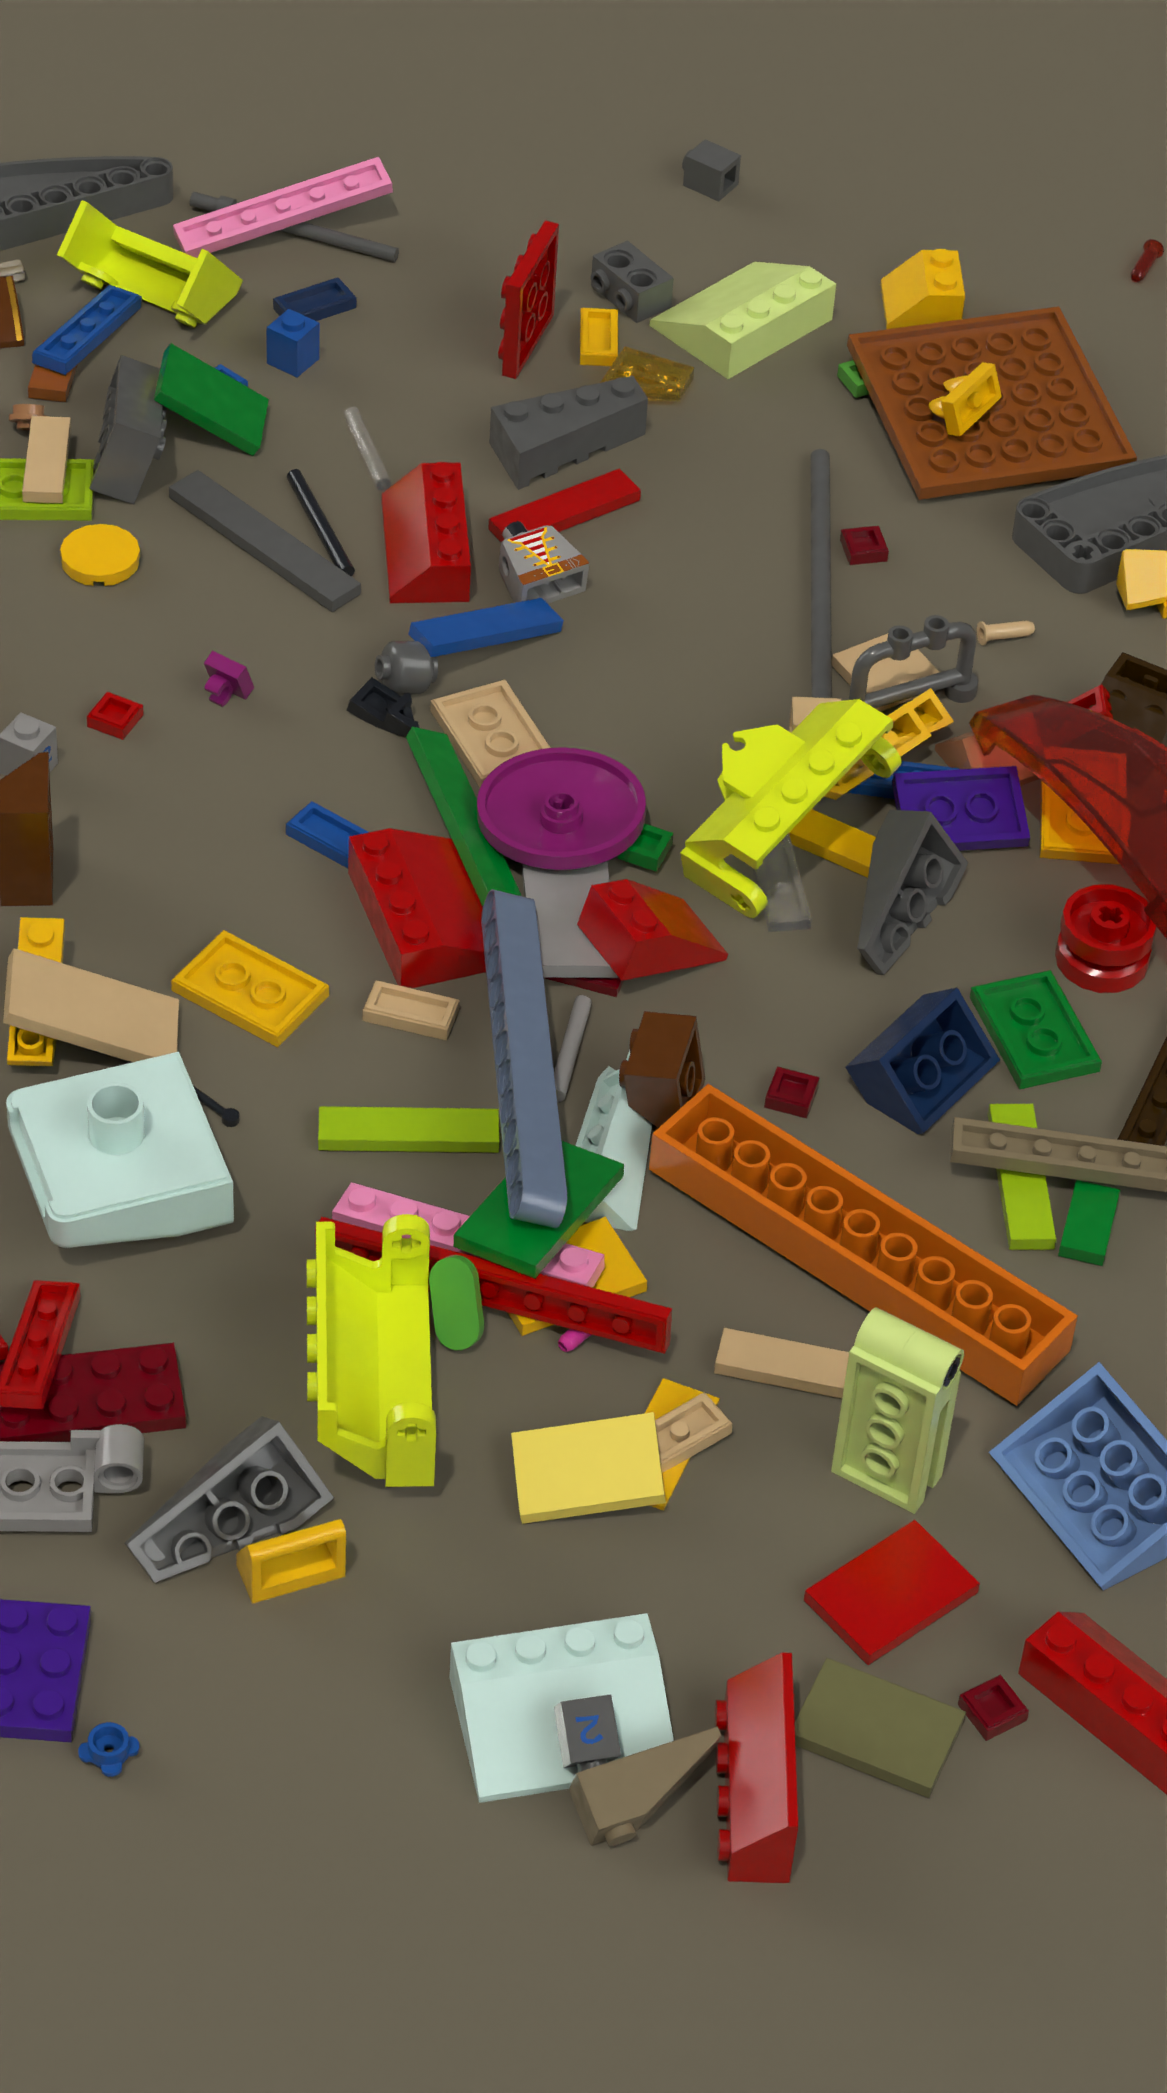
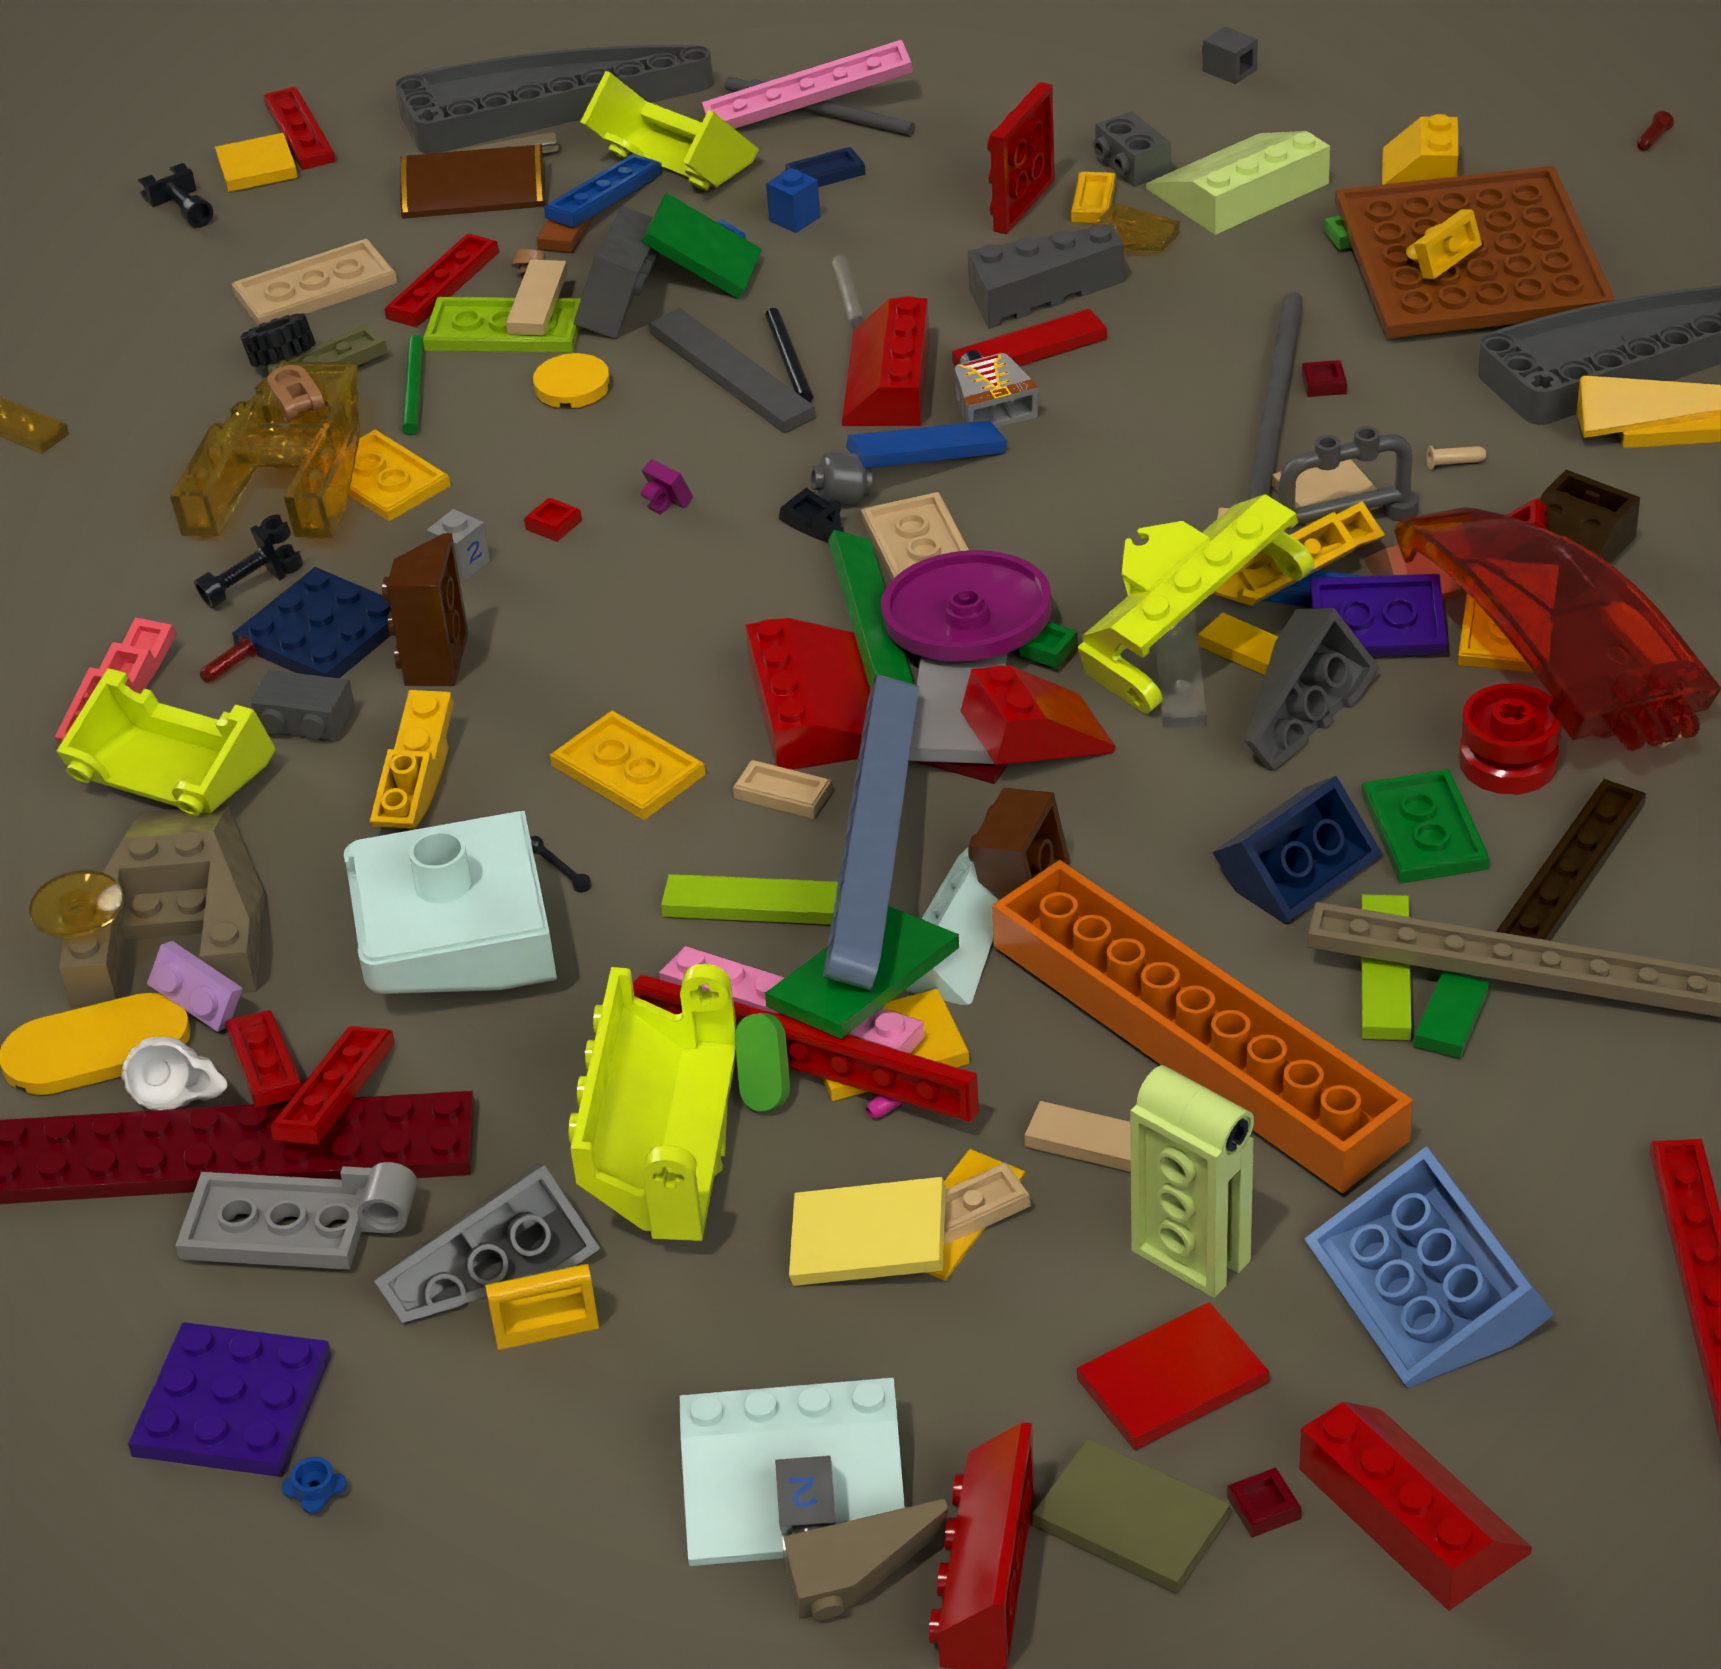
camera: 15 degrees right, 5 degrees down
(88, 1009) = (455, 773): tan tile -> none
(323, 832) = (726, 624): blue tile -> none
(571, 1045) = (935, 829): light grey bar -> none
(791, 1092) = (1157, 877): dark red tile -> none

